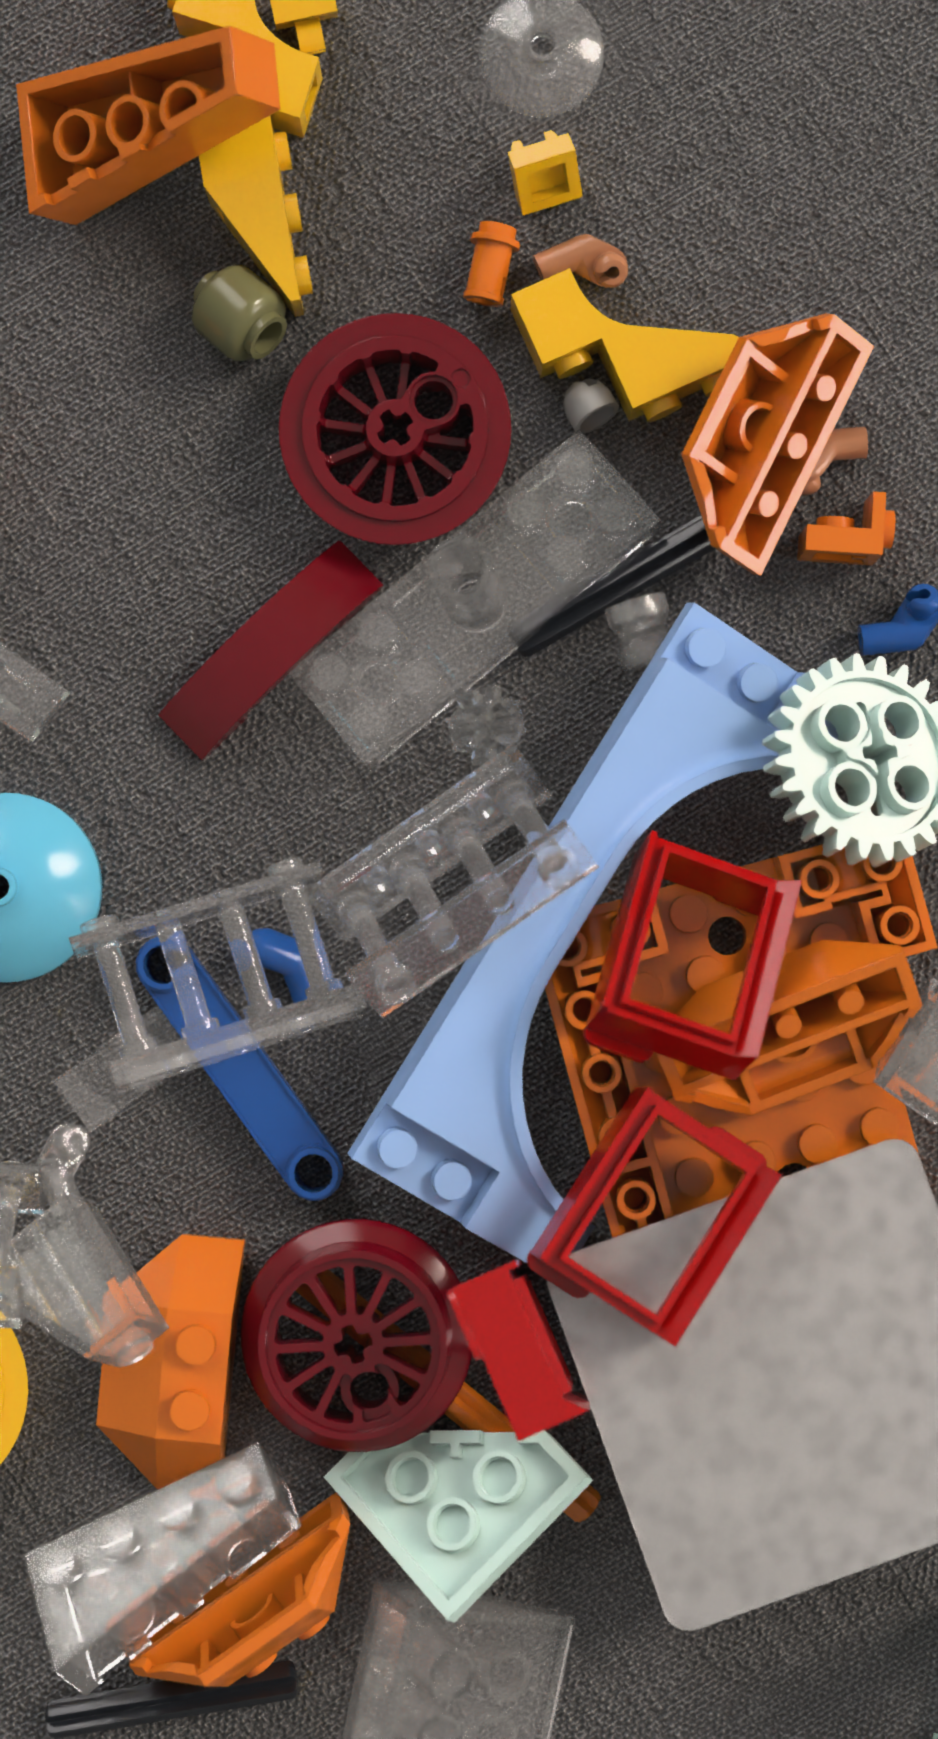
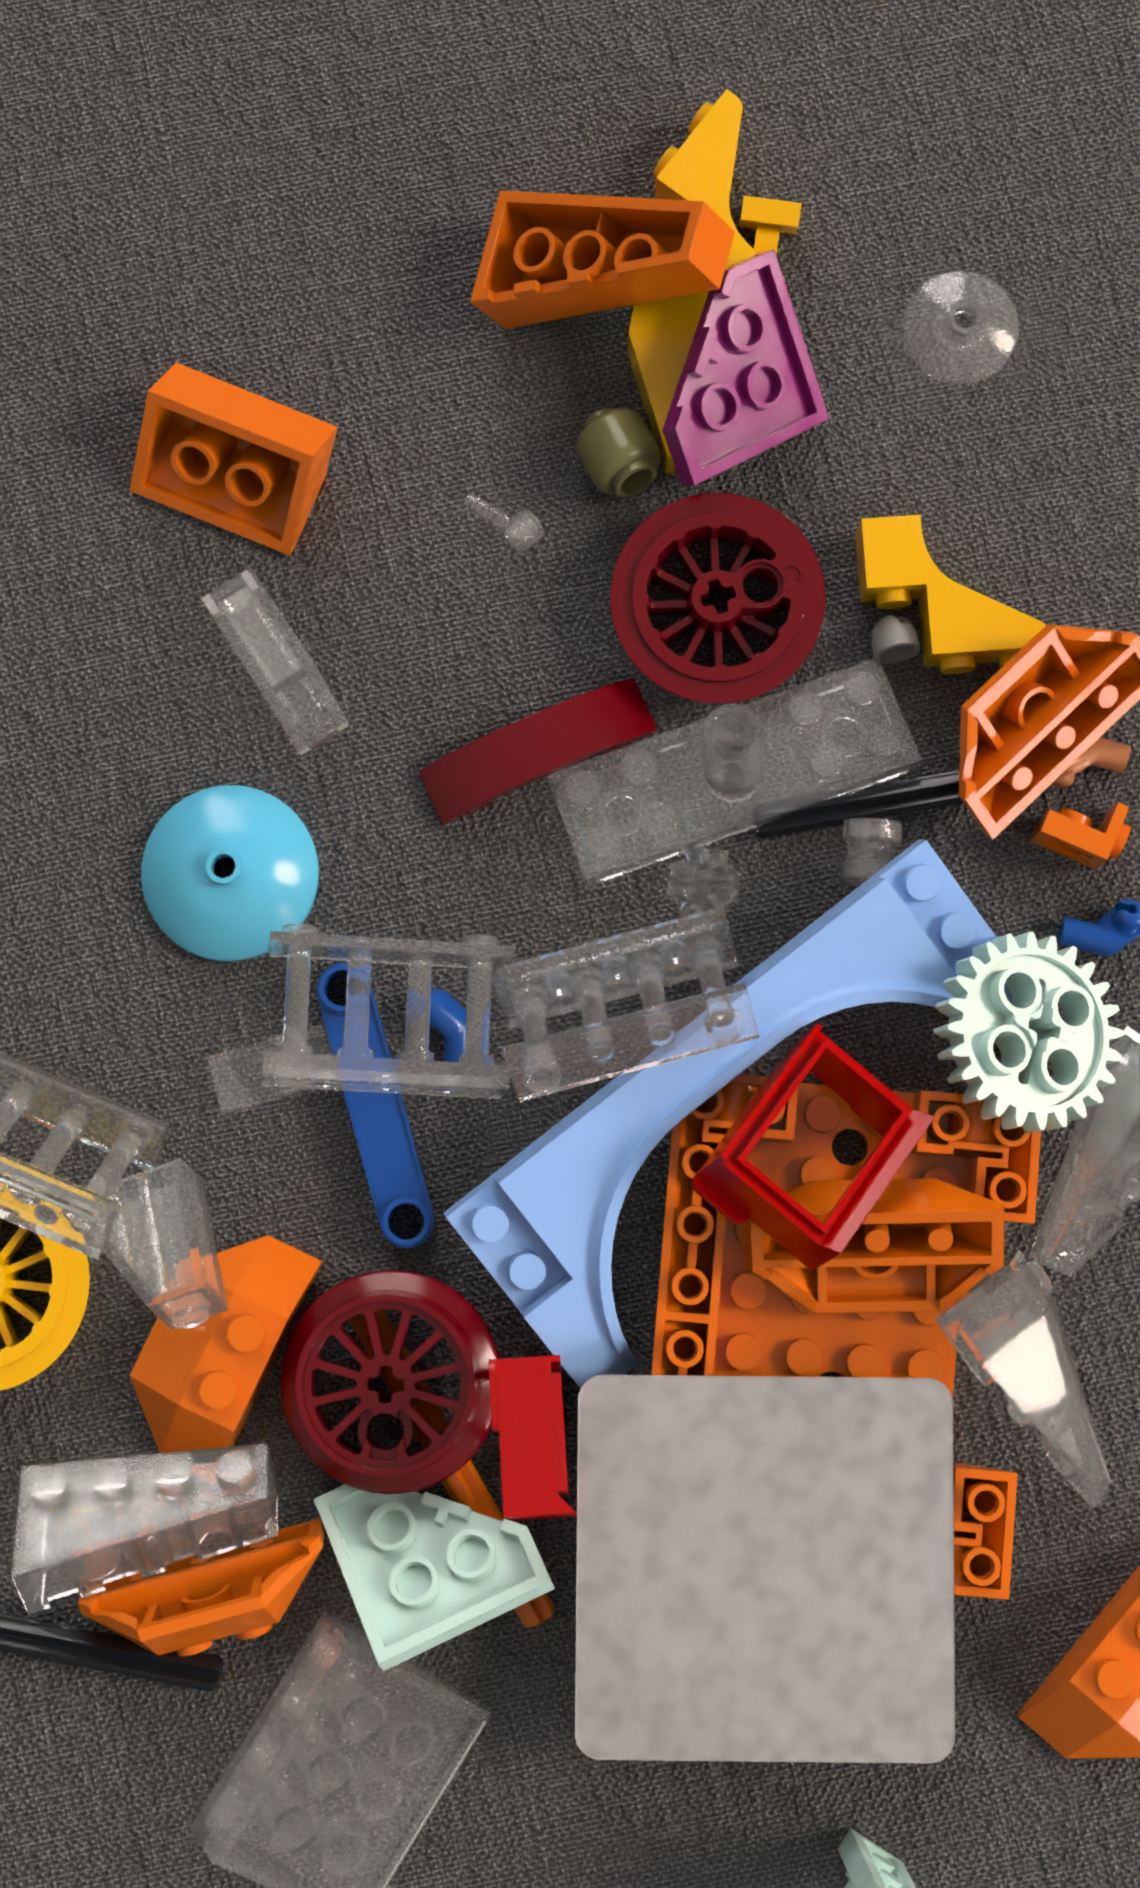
camera: 20 degrees right, 5 degrees down
(61, 1160) = (188, 1128): clear arm -> none
(169, 430) = (520, 530): none -> clear hand
(338, 189) = (743, 375): none -> magenta plate
(490, 263) = (859, 476): orange pin -> none
(545, 172) = (927, 428): yellow tile -> none
(551, 1251) = (593, 1380): red piece -> none
(585, 257) = (938, 514): nougat arm -> none

